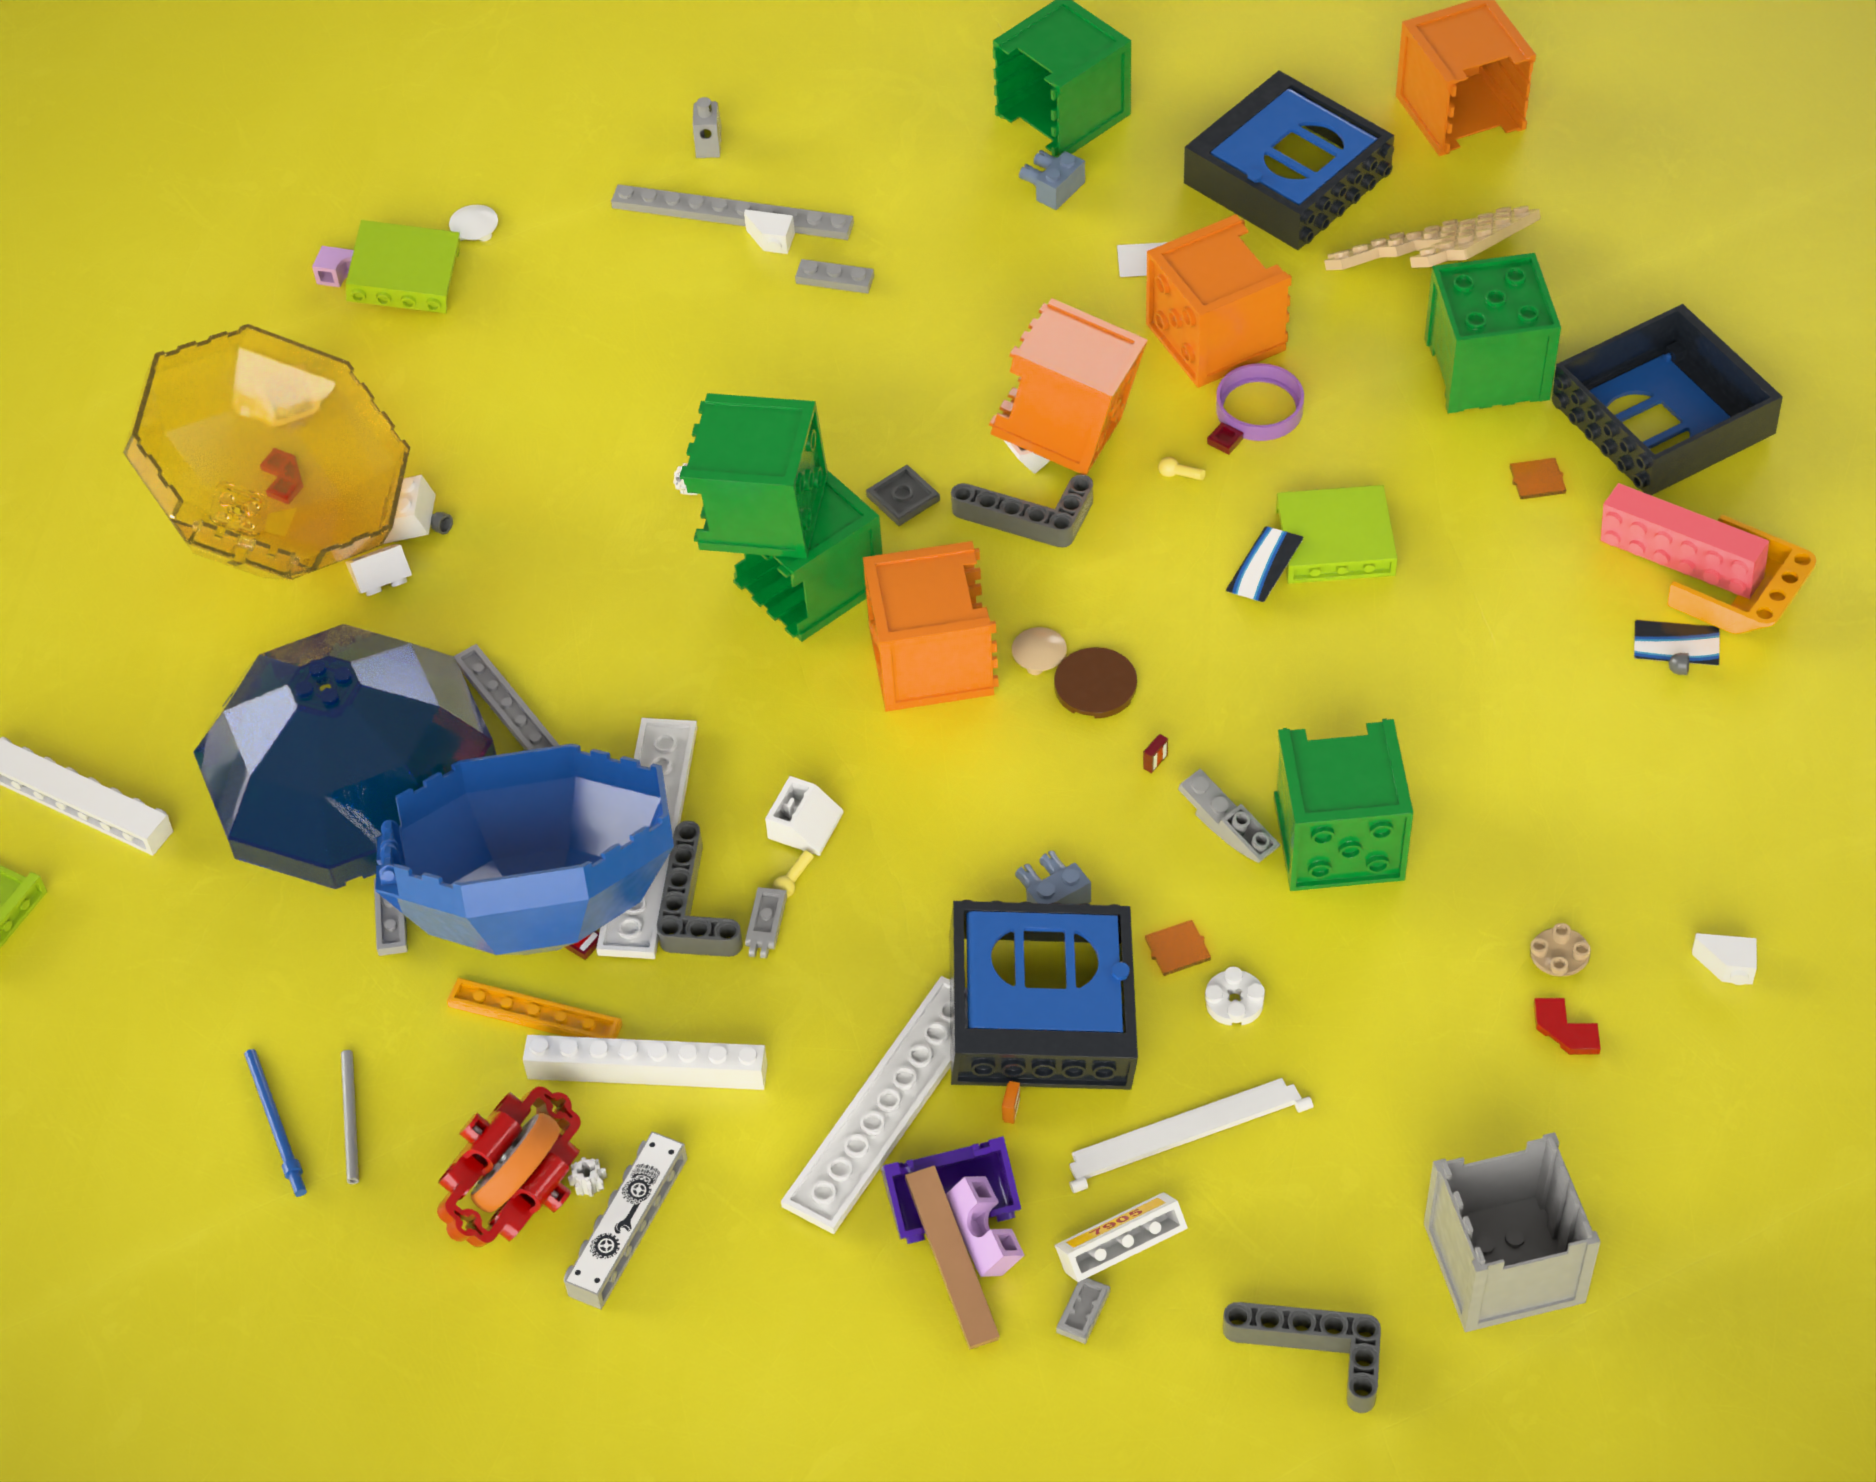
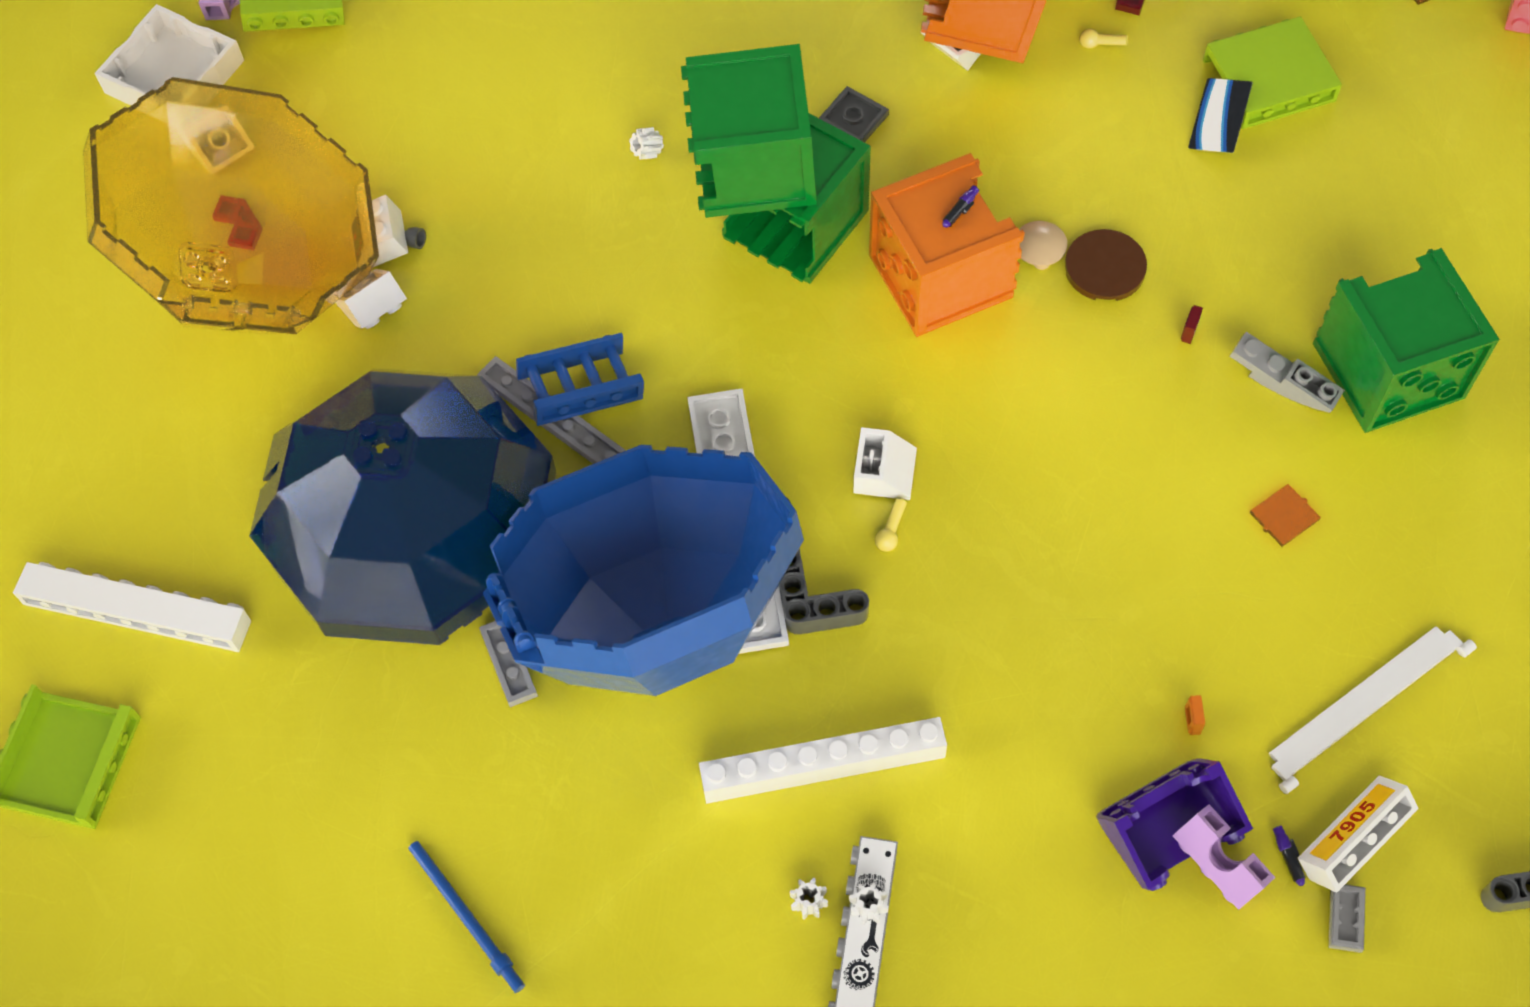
camera: 15 degrees left, 10 degrees up
(273, 302) = (165, 48): none -> white tile
(349, 1109) = (541, 891): light grey piece -> none
(511, 1165) = (734, 912): red piece -> none
(531, 1011) = (688, 731): light orange tile -> none
(545, 698) = (586, 399): none -> blue fence
(633, 1185) = (862, 897): none -> white gear
(765, 921) = (884, 580): light grey hinge -> none
(877, 1116) = (1074, 749): white plate -> none
(943, 587) = (961, 207): none -> black piece
(952, 1257) = (1205, 897): medium nougat tile -> none
(1024, 518) = (976, 115): dark grey beam -> none
(1042, 1033) = (1198, 641): door -> none
(1052, 1238) = (1290, 854): none -> piece
(1064, 885) = (1155, 491): sand blue brick -> none
(1234, 982) = (1370, 542): white plate -> none

